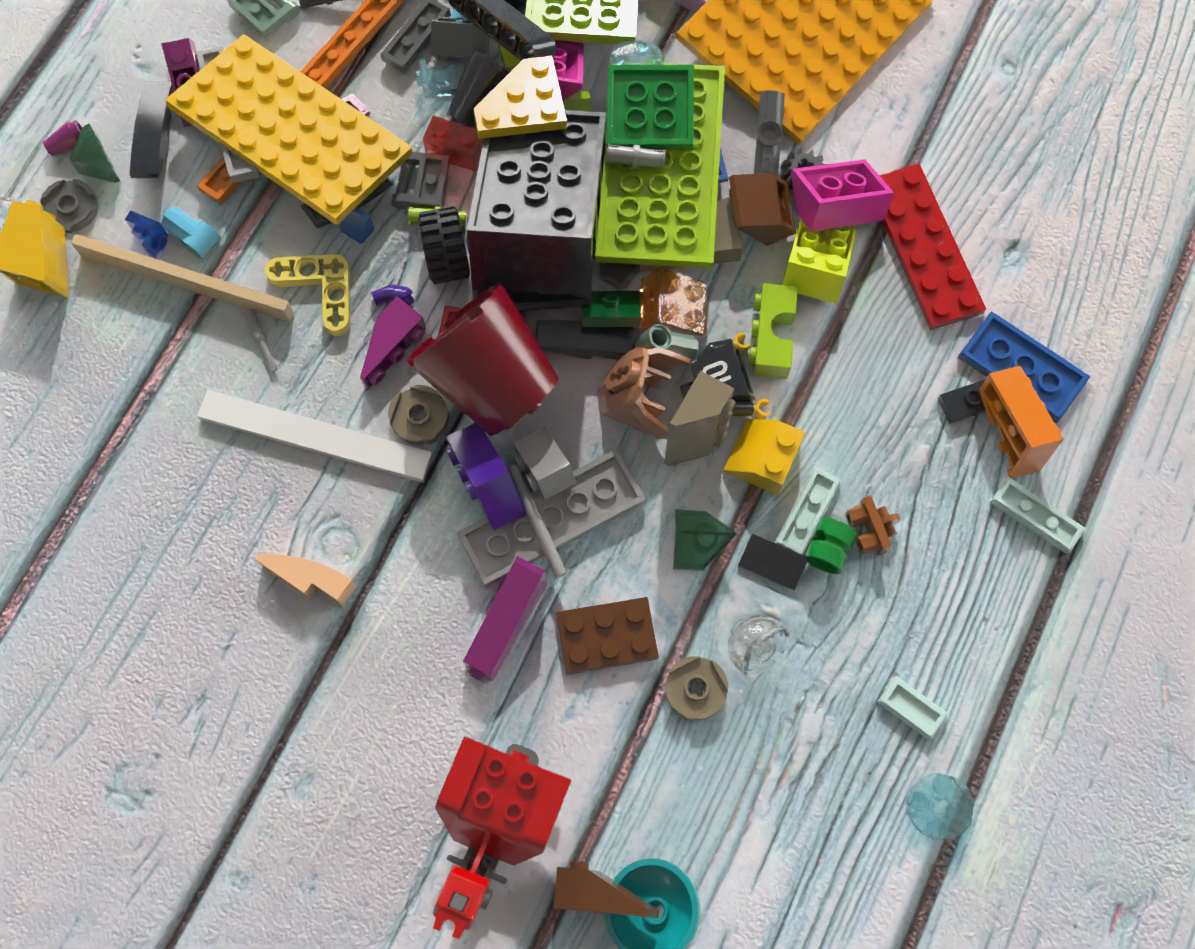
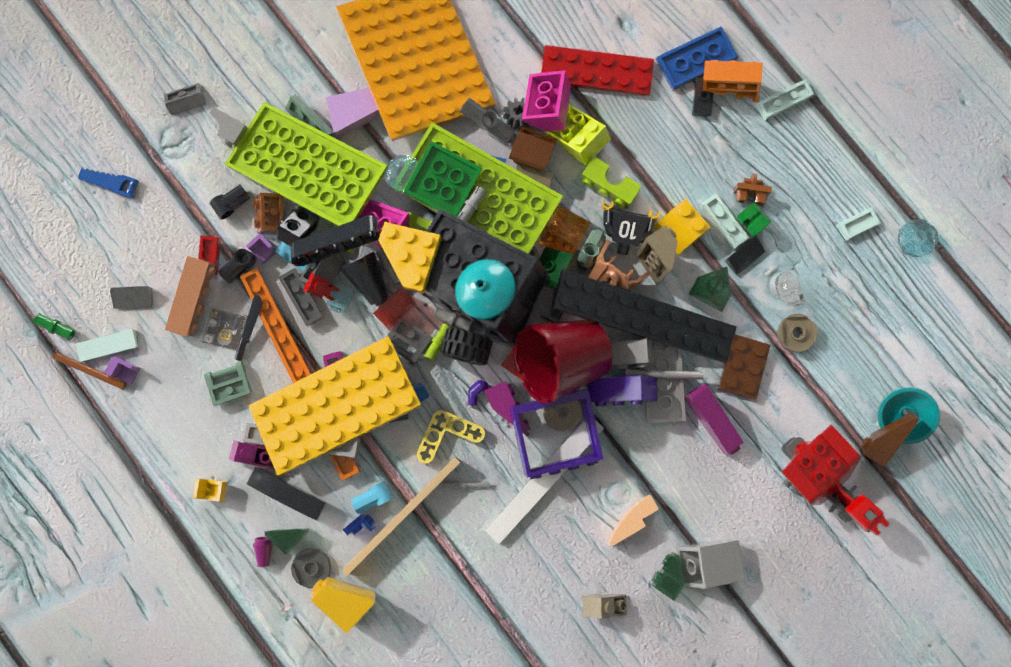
camera: 65 degrees left, 10 degrees up
(118, 43) = (210, 490): none -> yellow bracket
(168, 593) = (604, 605): none -> dark tan slope
(245, 666) = (670, 578): none -> clear green slope
(292, 716) = (711, 563): none -> light grey slope
(331, 433) = (572, 463): none -> dark purple window
(435, 37) = (319, 287): none -> red plate
(516, 198) = (493, 296): none -> teal dish
(600, 449) = (643, 316): none -> black plate

